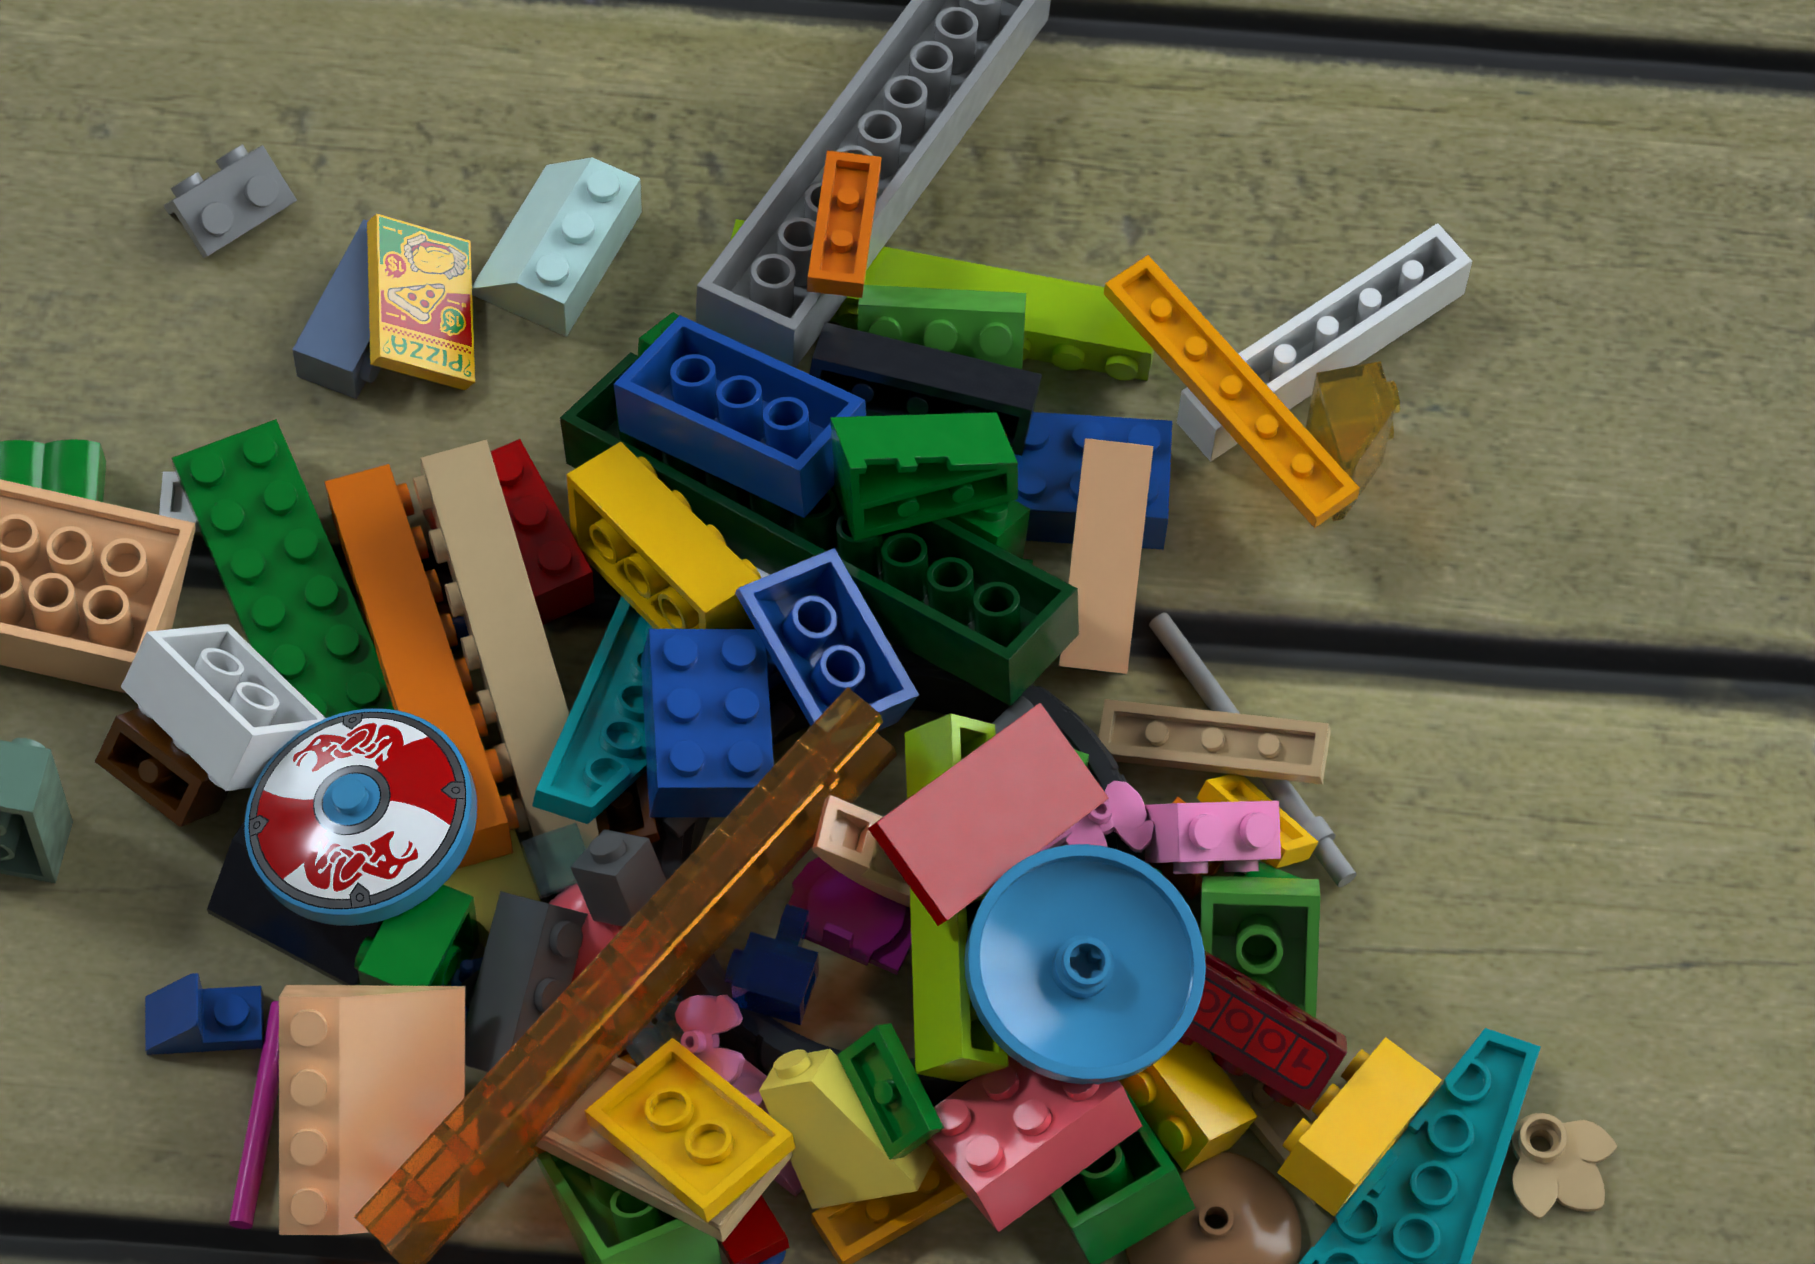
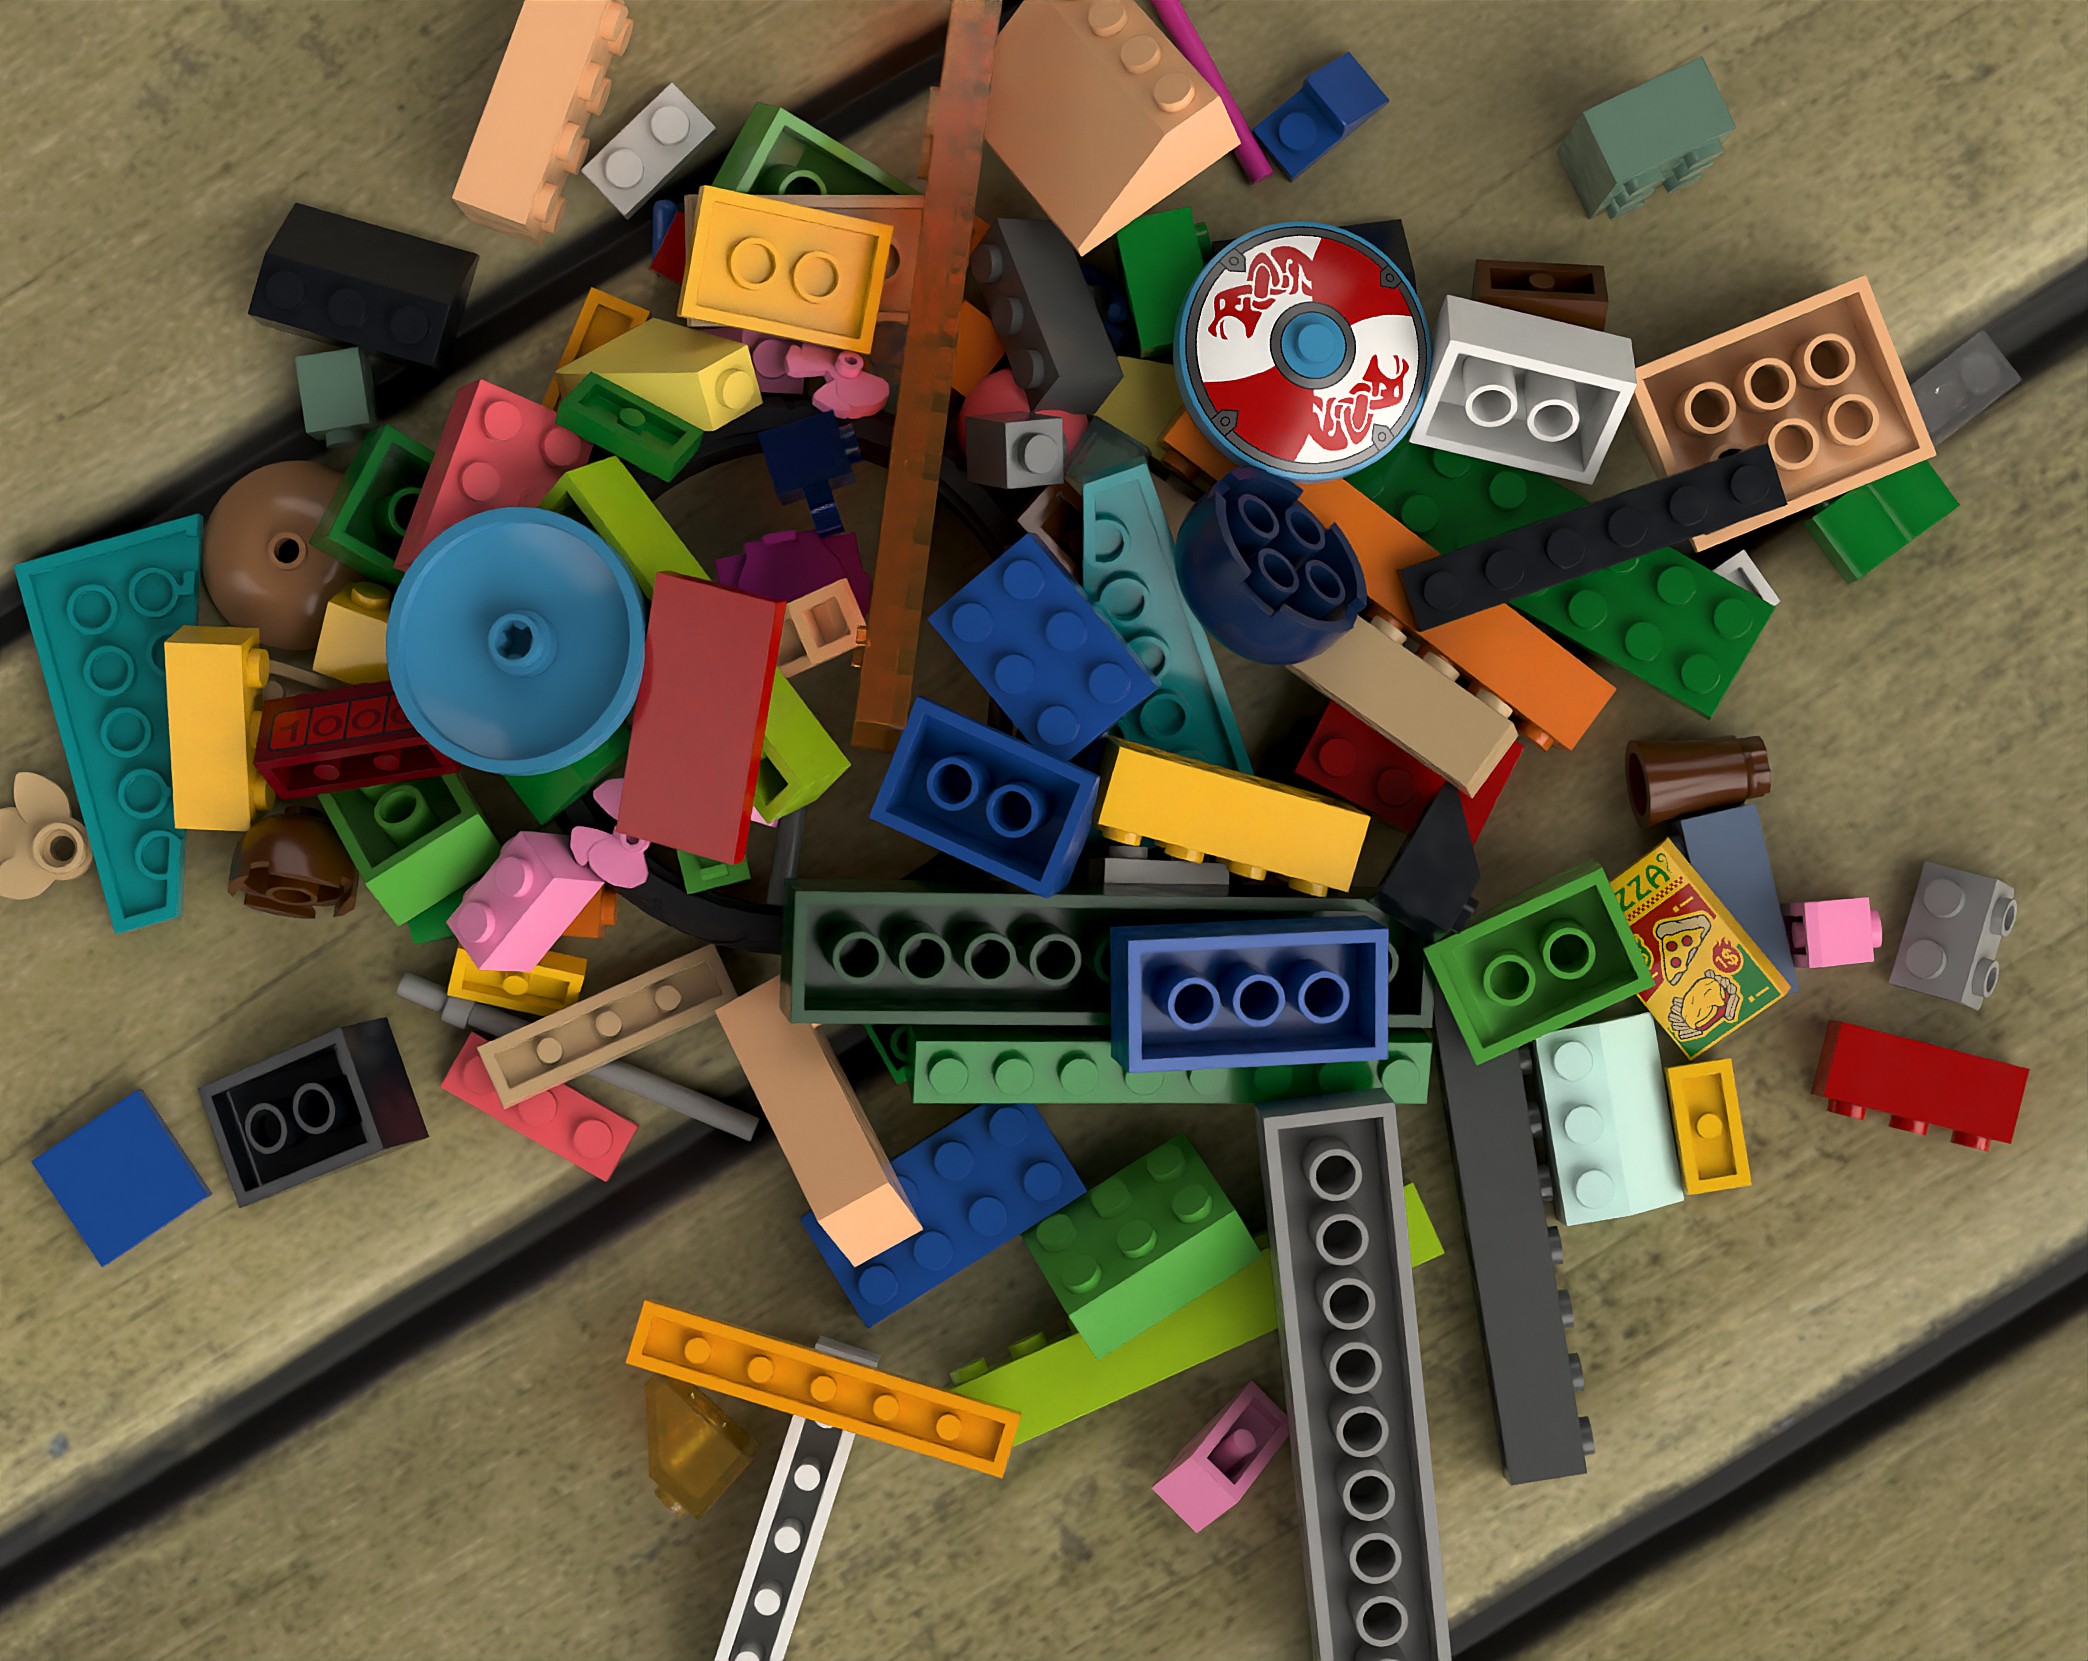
camera: 150 degrees right, 25 degrees up
(261, 571) = (1592, 537): none -> black plate
(310, 244) = (1831, 931): none -> bright pink slope
(319, 403) = (1693, 776): none -> reddish brown plant
(331, 126) = (1919, 1085): none -> red brick
(492, 193) = (1707, 1126): none -> yellow plate
(520, 341) = (1539, 962): none -> bright green slope
(535, 674) = (1267, 570): none -> dark blue cylinder
(548, 427) = (1432, 871): none -> black slope
(680, 215) = (1512, 1257): none -> dark grey brick
(844, 224) = (1301, 1272): orange plate -> none
(919, 468) = (1025, 1047): green wedge -> none
(922, 380) = (1108, 1164): black brick -> none
(986, 204) = (1223, 1458): none -> bright pink slope
(1283, 691) = (557, 1118): none -> coral plate
(1366, 1001) = (294, 864): none -> reddish brown cylinder
(1475, 830) = (313, 1111): none -> black slope
(1652, 888) = (121, 1177): none -> blue tile

